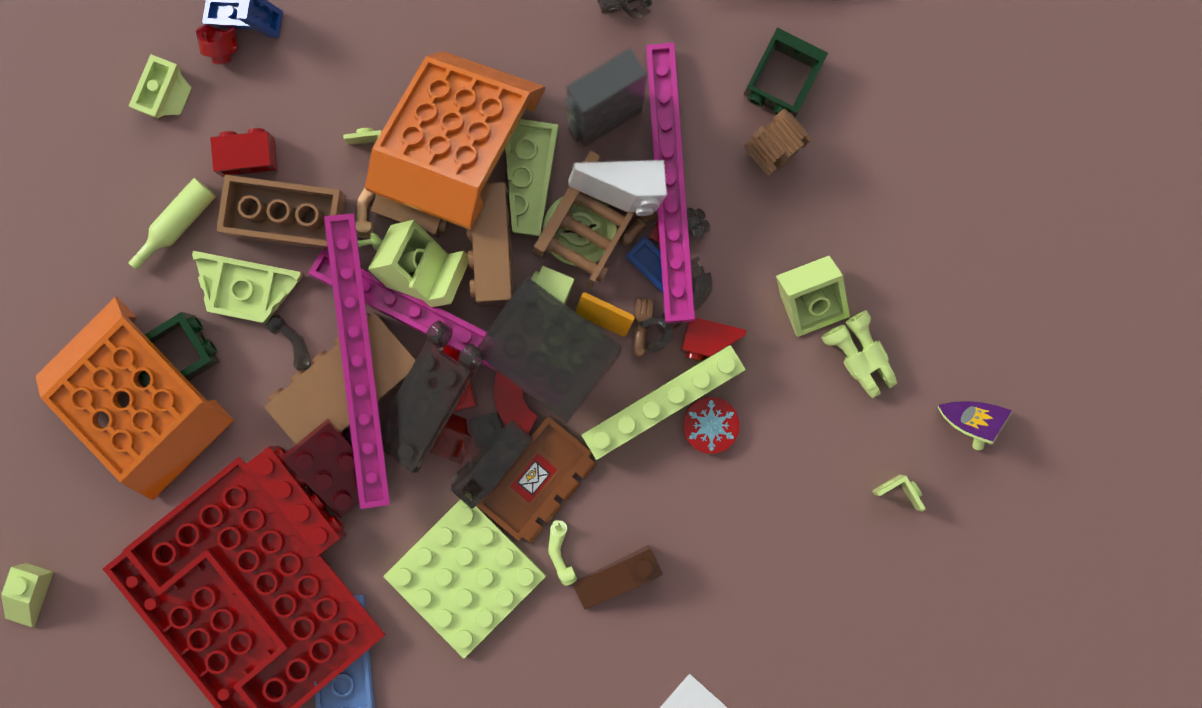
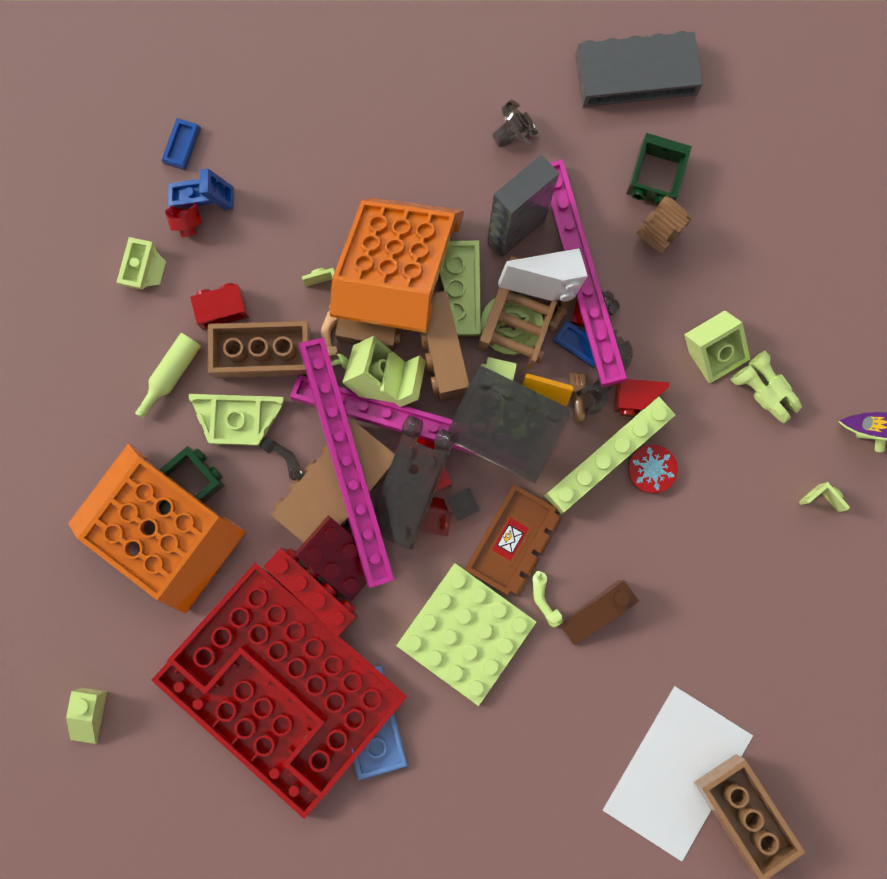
camera: 10 degrees left, 5 degrees down
(490, 464) = (473, 532): clear smoke slope -> none
(511, 403) = (481, 480): red tile -> none

